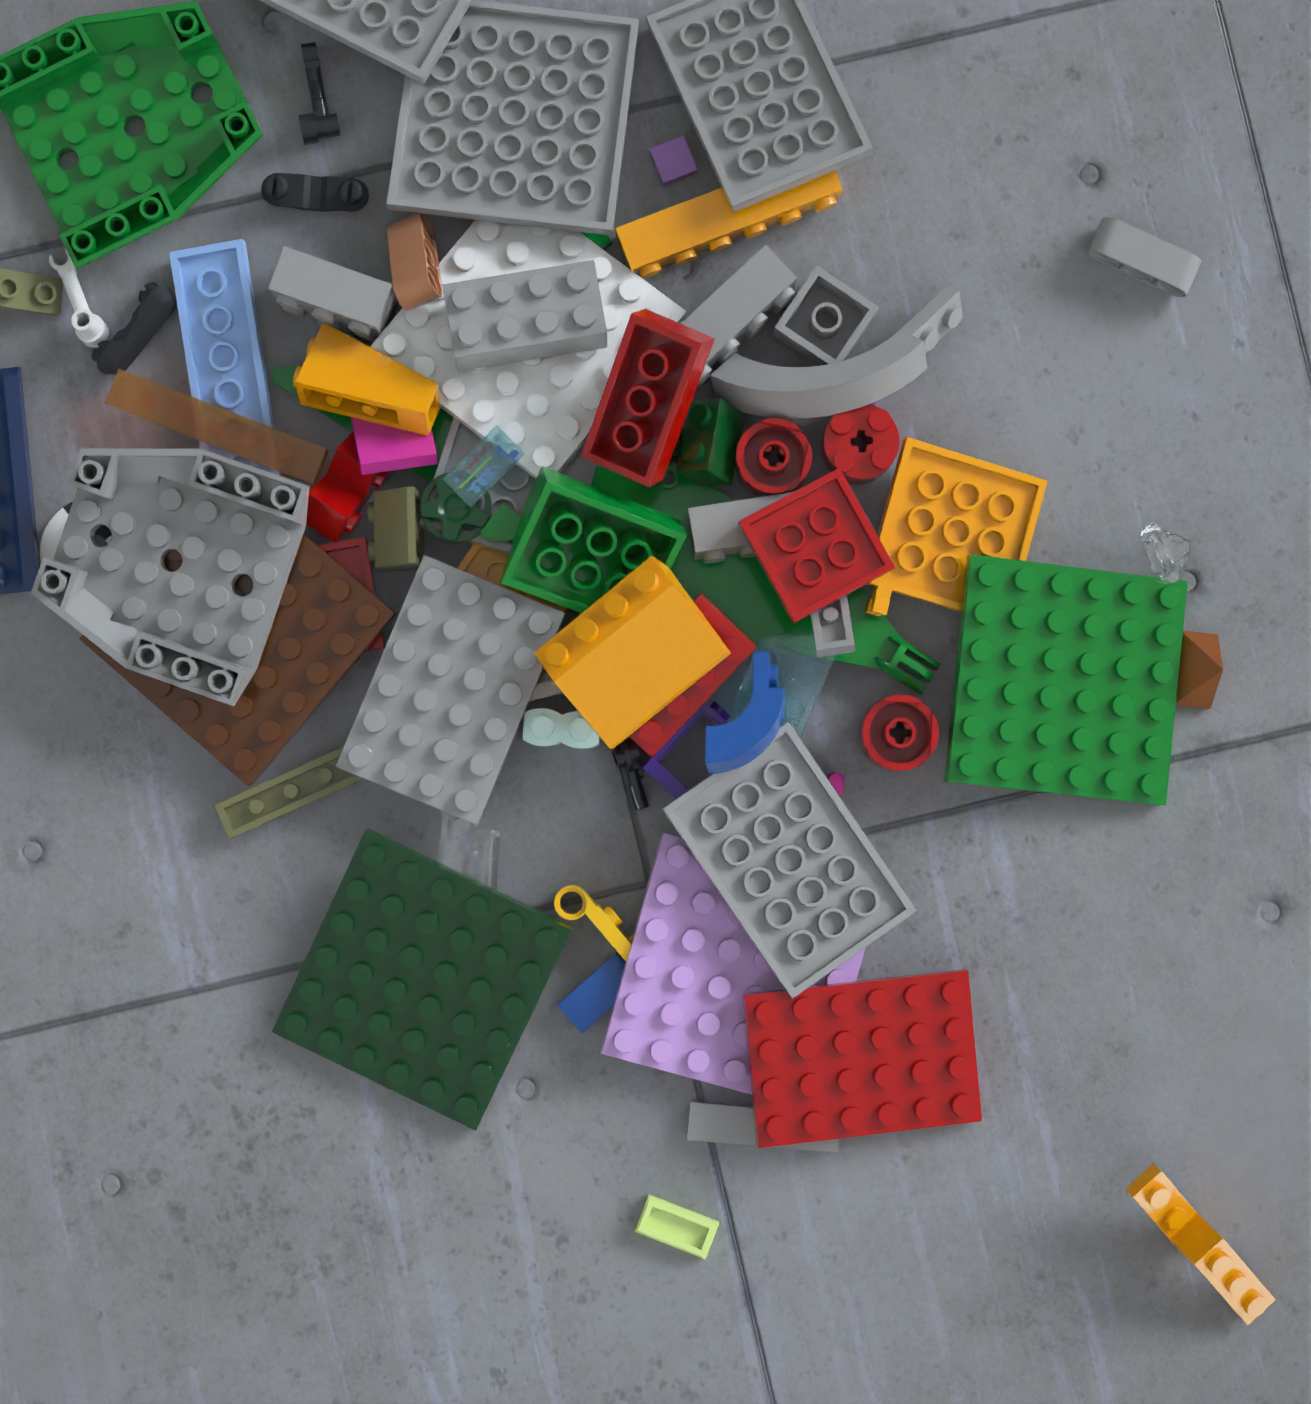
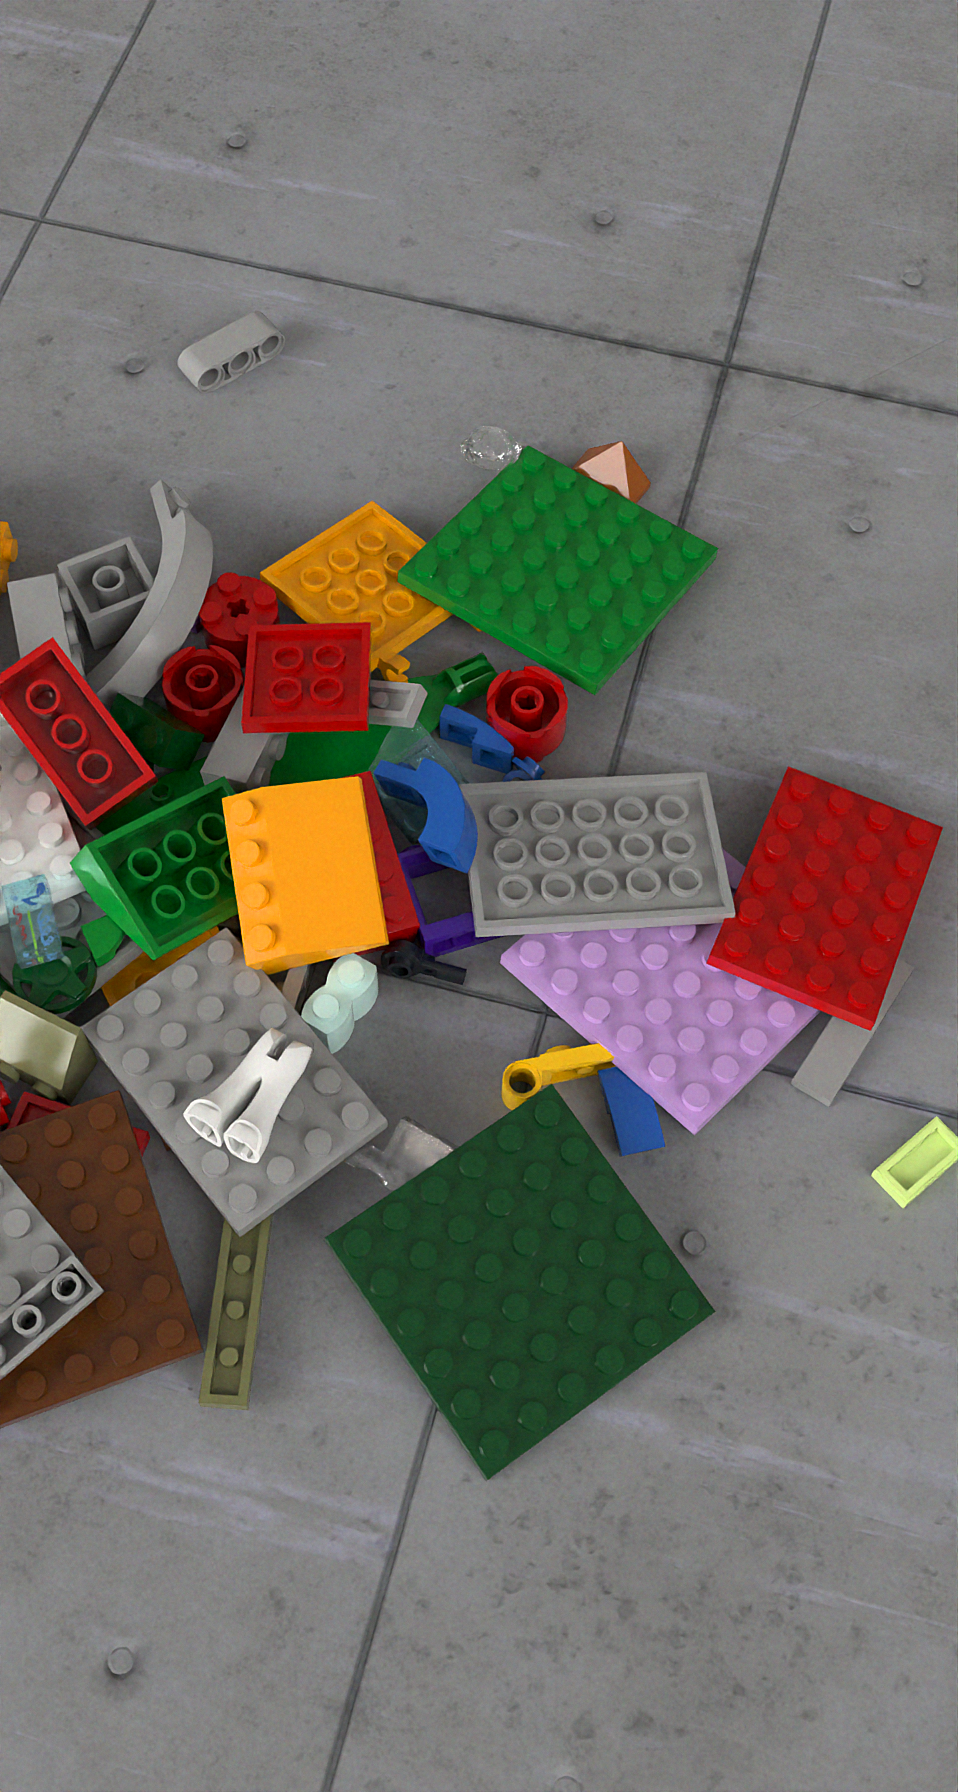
camera: 60 degrees left, 25 degrees down
(408, 704) = (218, 1113): none -> white piece
(847, 760) = (527, 770): none -> blue plate
(854, 714) = (487, 745): none -> blue slope

